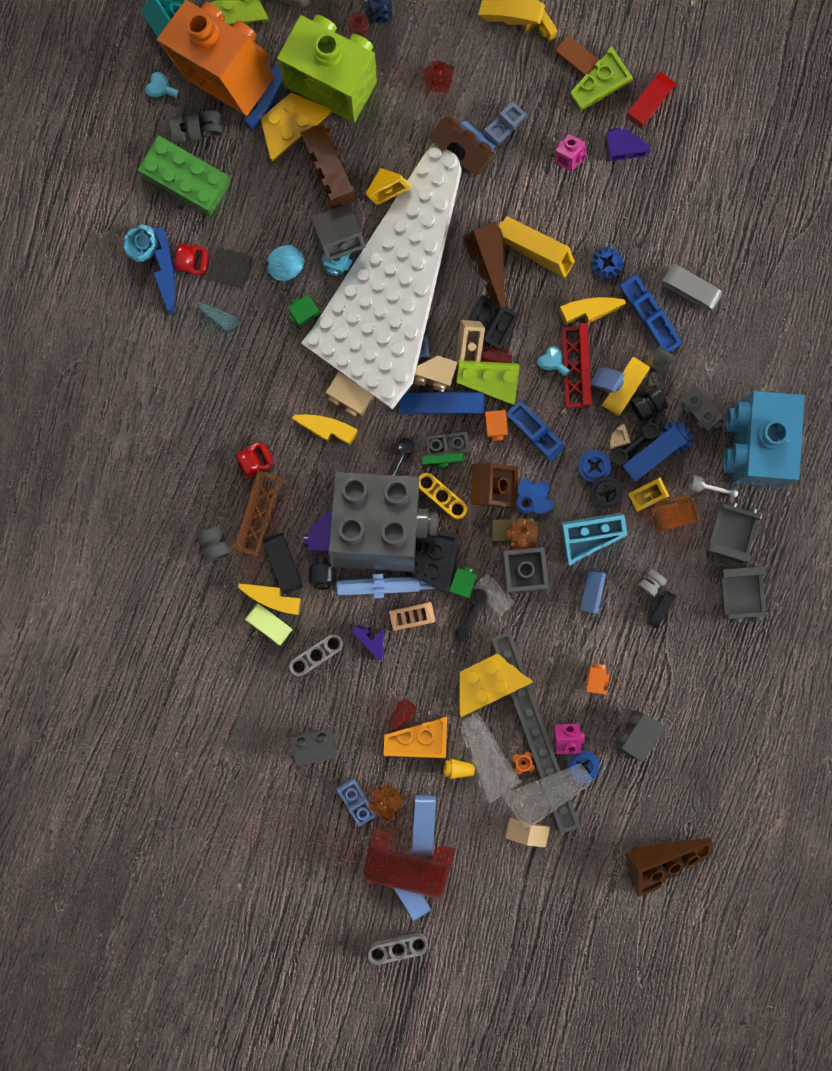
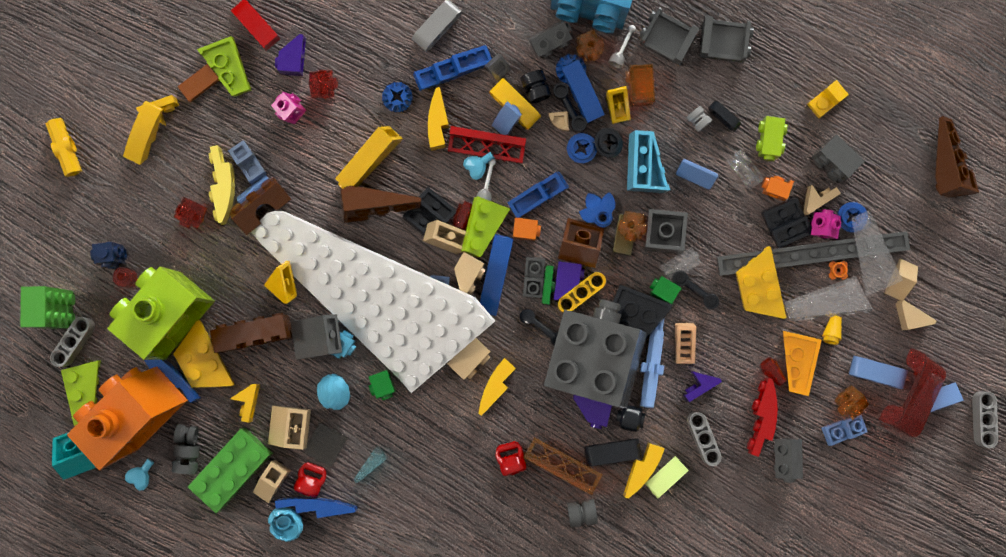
camera: 75 degrees left, 0 degrees up
(182, 219) = (271, 480): none -> tan slope
(240, 226) = (289, 427): none -> tan slope
(263, 179) = (250, 397): none -> yellow slope
(361, 713) = (767, 409): none -> red slope
(455, 478) = (567, 278): none -> dark purple slope
(468, 106) = (223, 192): none -> light yellow slope
(489, 850) = (911, 317): none -> tan slope
(524, 375) = (485, 193): none -> hinge
(562, 698) = (786, 222): none -> black slope
(590, 721) = (814, 201): none -> tan slope
(603, 182) = (322, 84): none -> clear red brick
(603, 649) = (750, 176): none -> clear hinge
(643, 663) = (771, 139): none -> lime brick
(704, 716) = (827, 99): none -> yellow slope
(711, 450) = (589, 40): none -> clear orange brick

